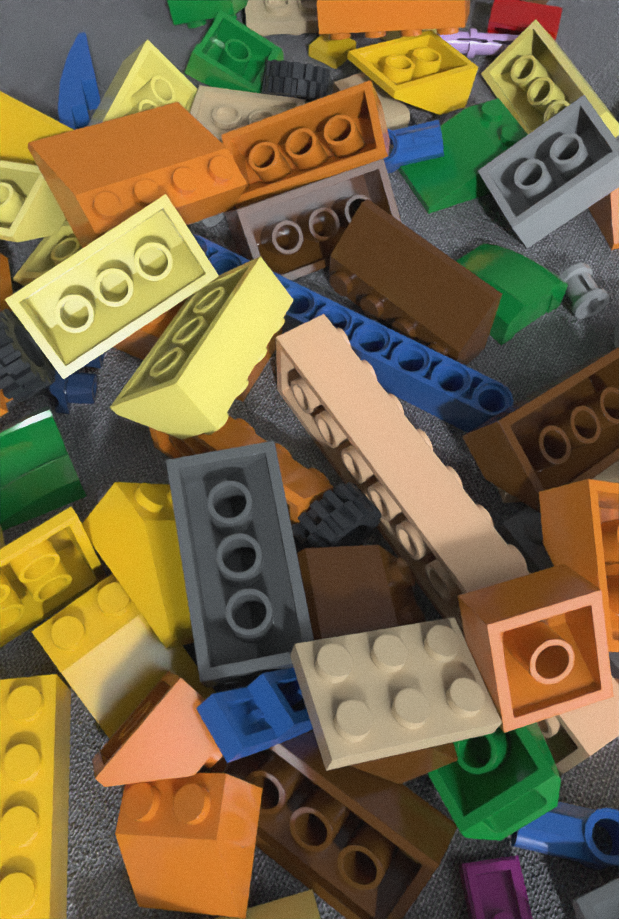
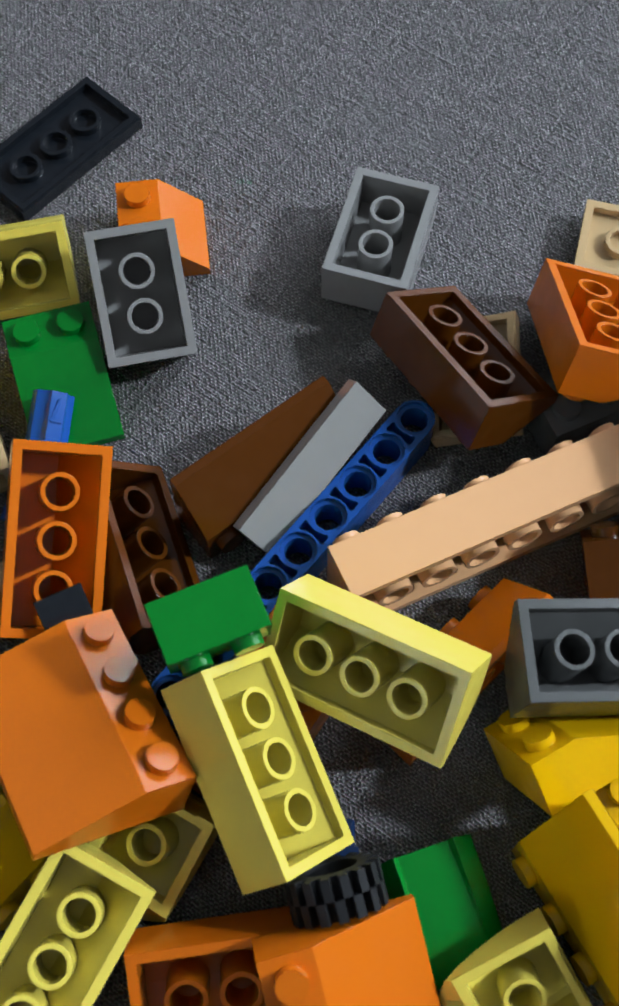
camera: 80 degrees left, 5 degrees up
(219, 205) = (209, 621): none -> green slope
(250, 164) = (62, 606): none -> black tile
(337, 519) = (544, 569): black tyre -> none
(421, 314) = (310, 465): none -> light grey tile
(525, 287) = (253, 378): green slope -> none
(583, 291) = (275, 311): light grey bush -> none

